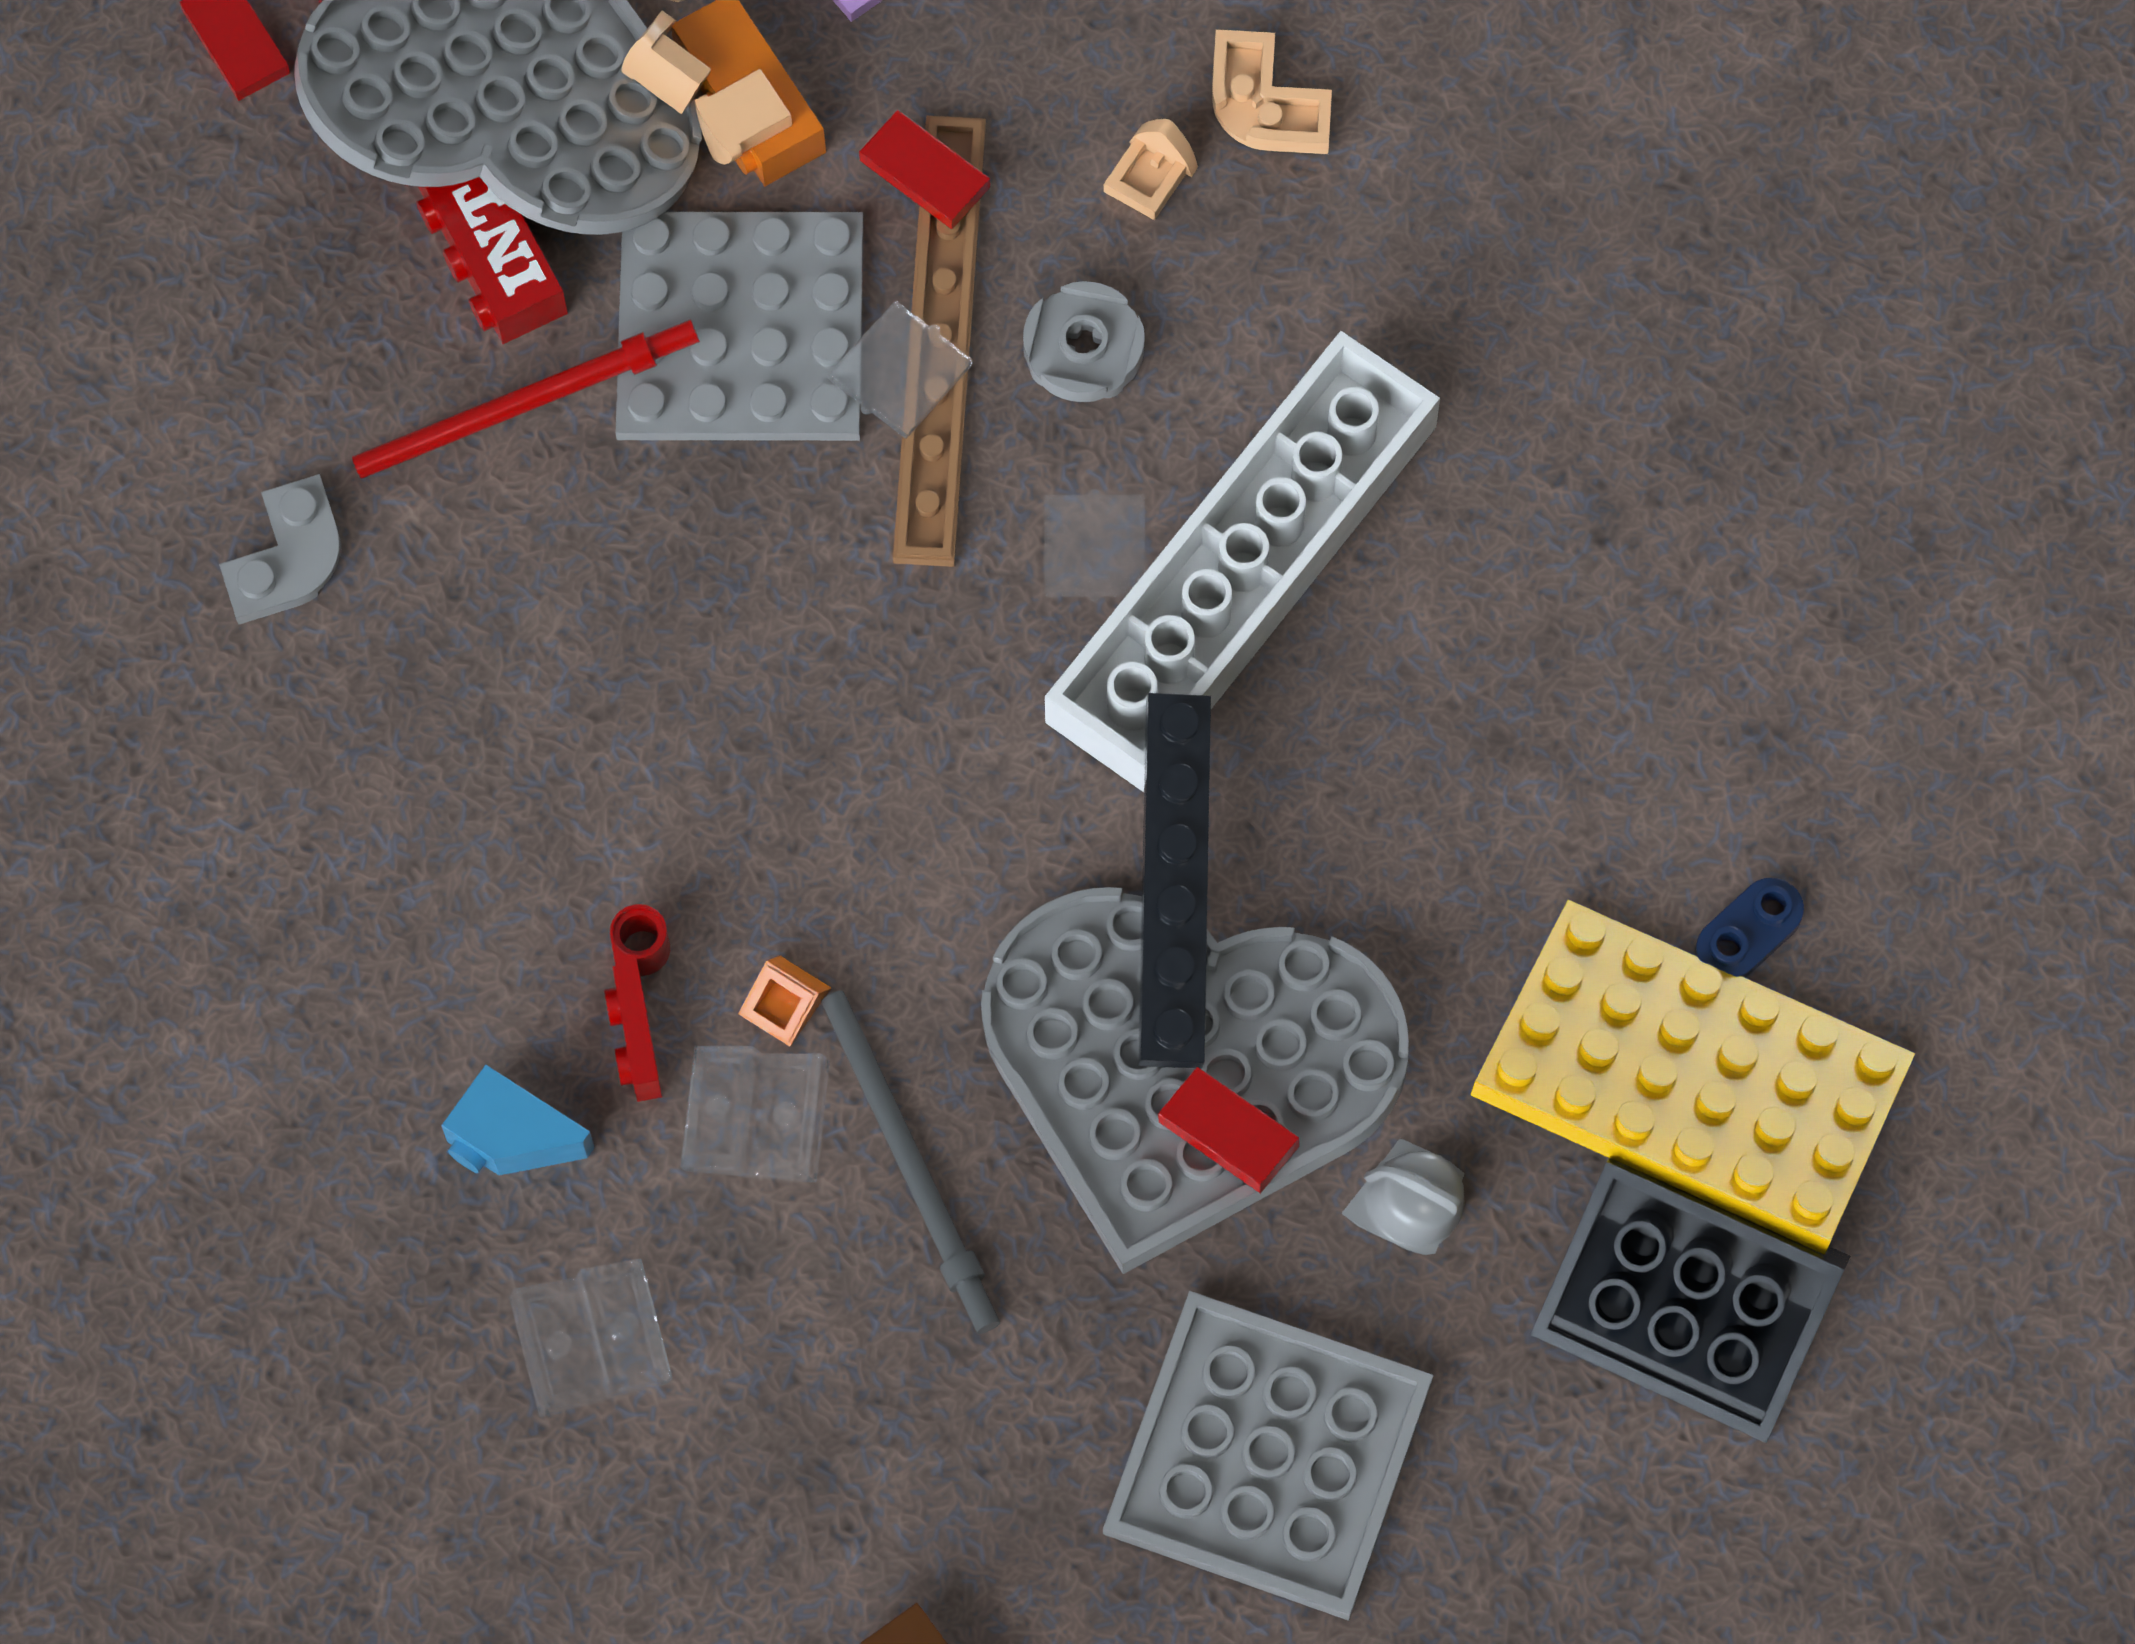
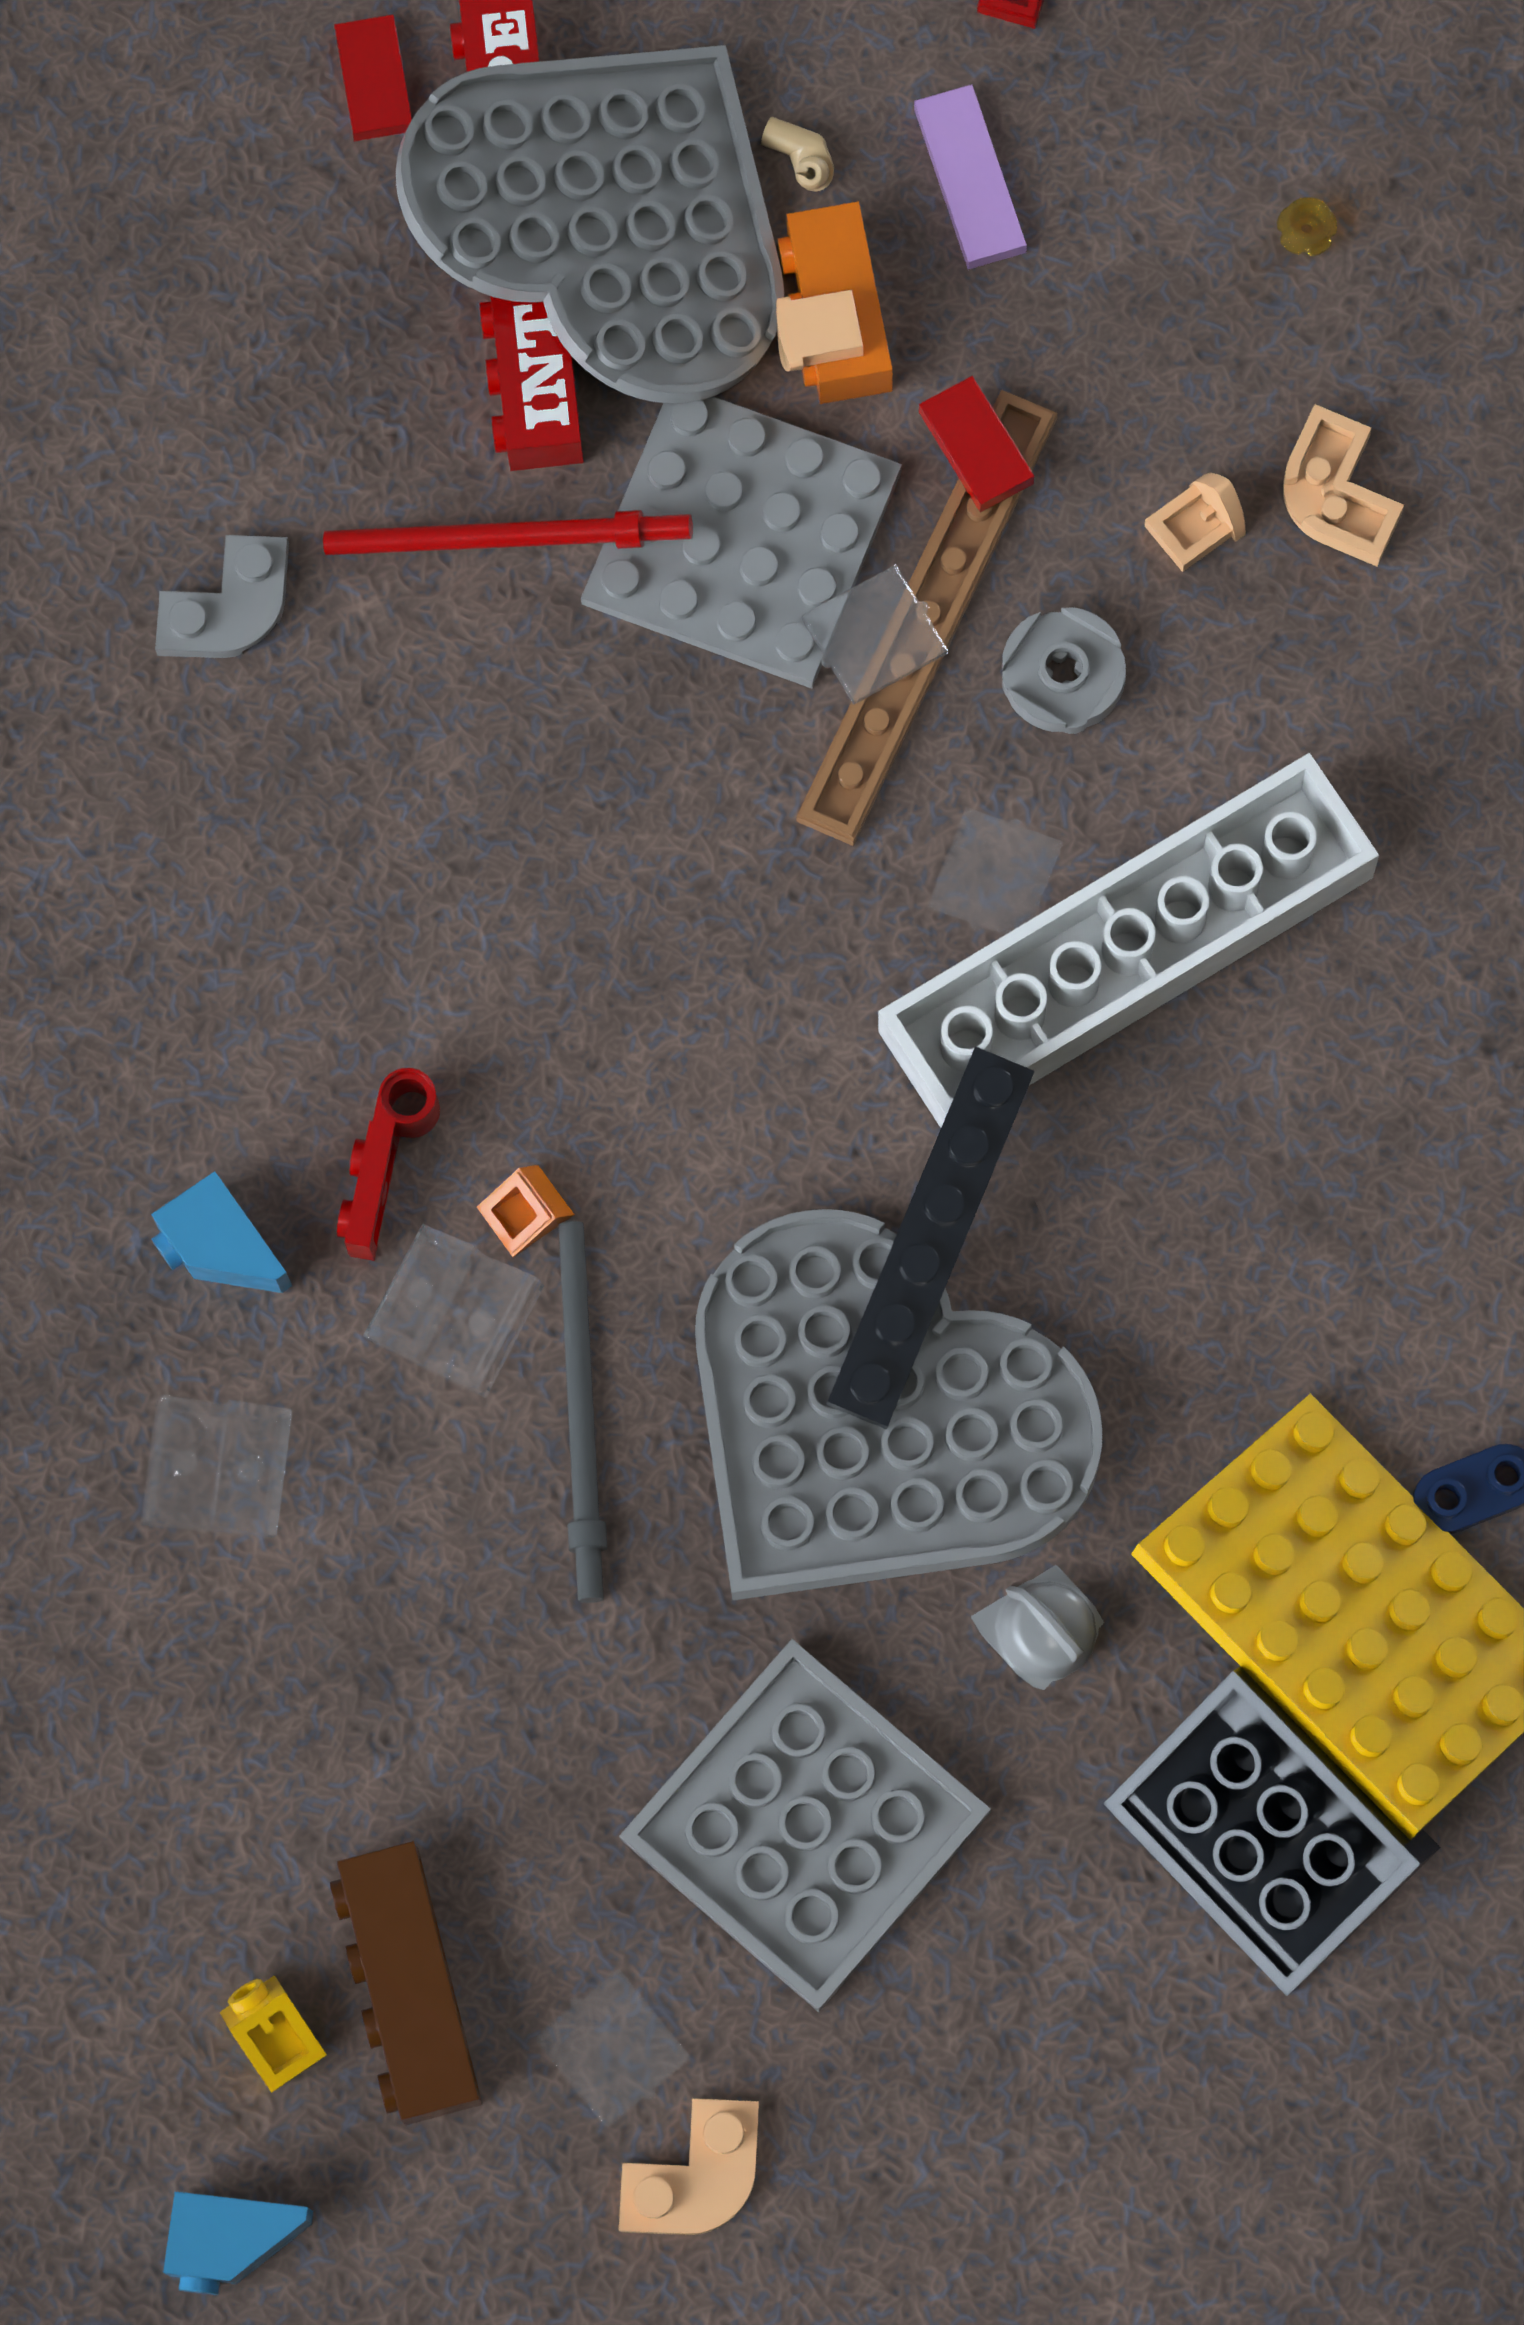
camera: 25 degrees right, 5 degrees up
(665, 66) = (762, 252): light nougat tile -> none
(1228, 1130) = (884, 1501): red tile -> none

